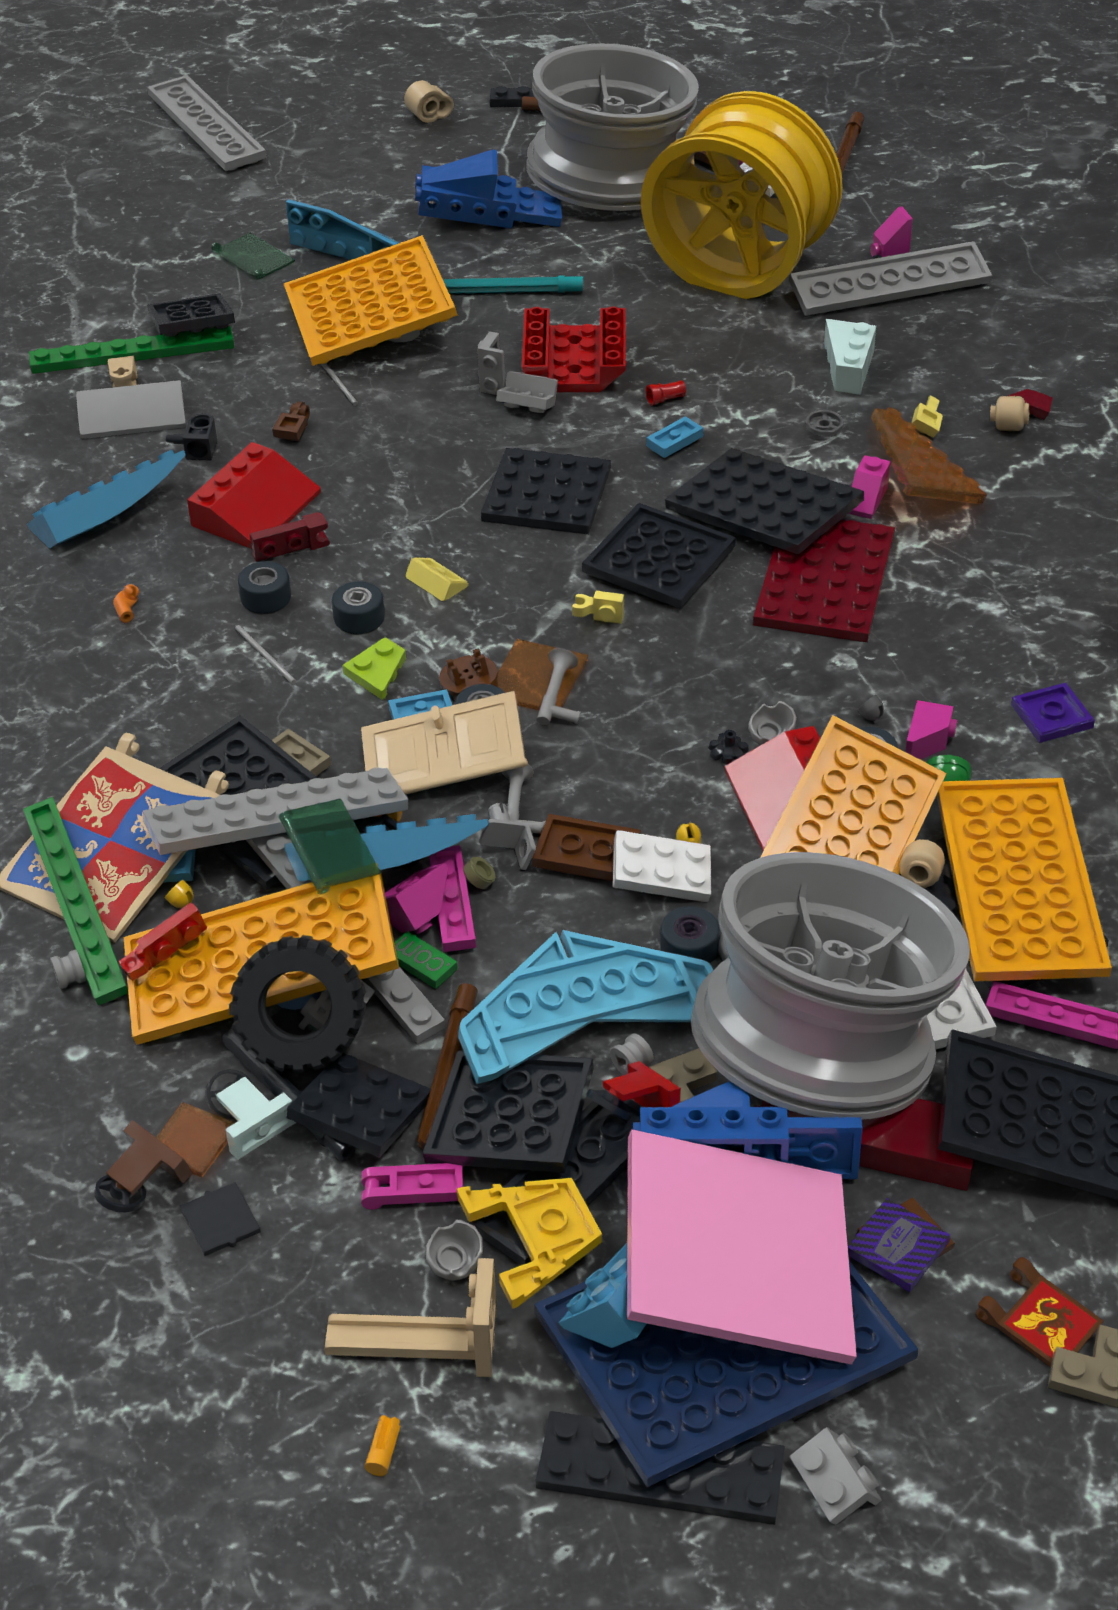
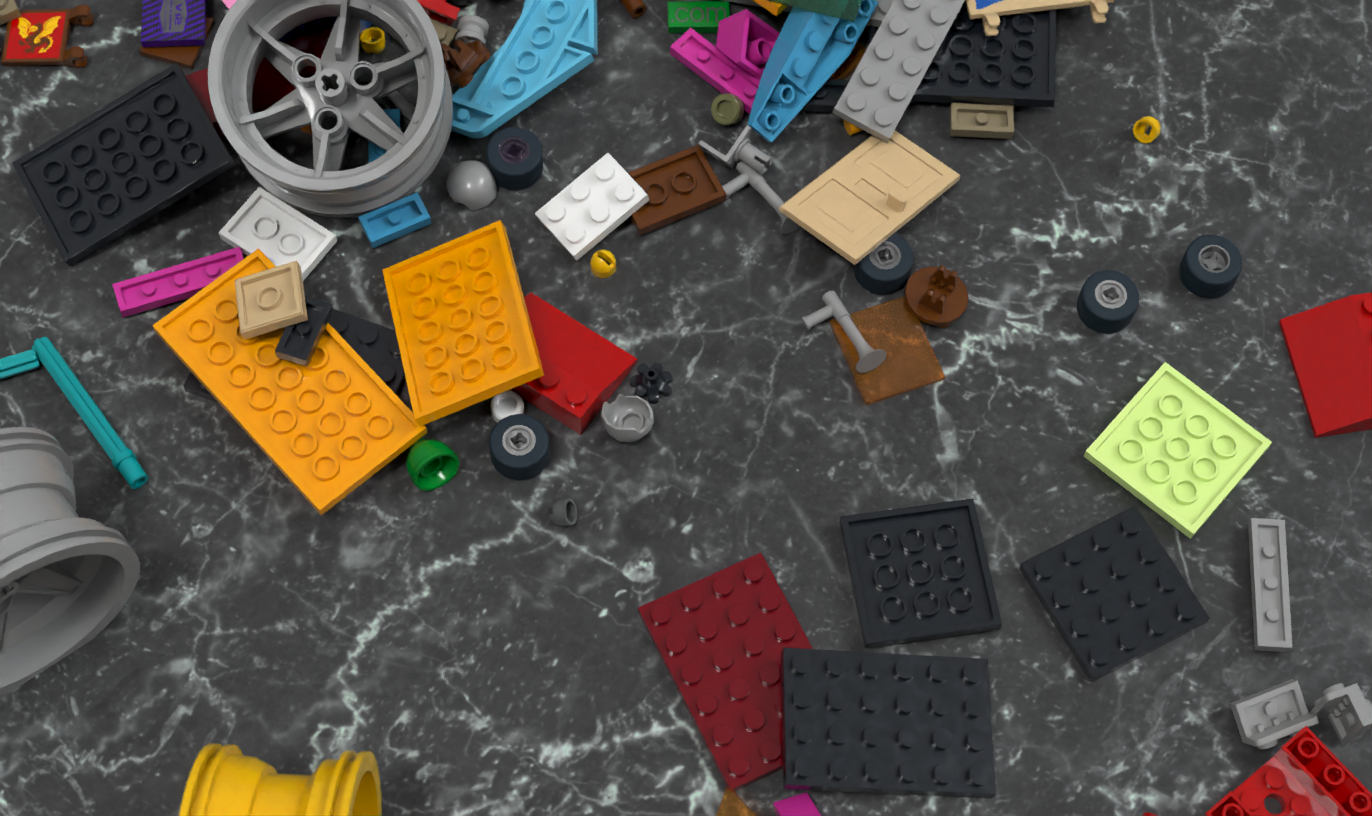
camera: 135 degrees right, 20 degrees up
(124, 602) = (1304, 171): orange arm -> none
(189, 683) = (1142, 126): none -> yellow hinge
(265, 654) = (1143, 212): light grey axle -> none
(290, 537) = (1251, 358): dark red plate -> none
(376, 666) = (1025, 258): lime wing -> none
(417, 522) = (1177, 450): none -> yellowish green plate
(418, 703) = (937, 233): dark azure plate -> none
(435, 578) = (1089, 400): light yellow slope -> none
(449, 442) = (1269, 585): none -> light grey plate
(603, 606) = (899, 460): light yellow plate -> none
(666, 1009) = (463, 61): none -> reddish brown plate
(674, 437) = (1066, 767): dark azure plate -> none
(922, 863) = (376, 330): tan head -> none
(930, 729) = (489, 515): dark pink slope -> none
(986, 879) = (301, 339): none -> black plate
(999, 910) = (270, 300): none -> tan tile
(1052, 712) = (398, 635): dark purple tile -> none

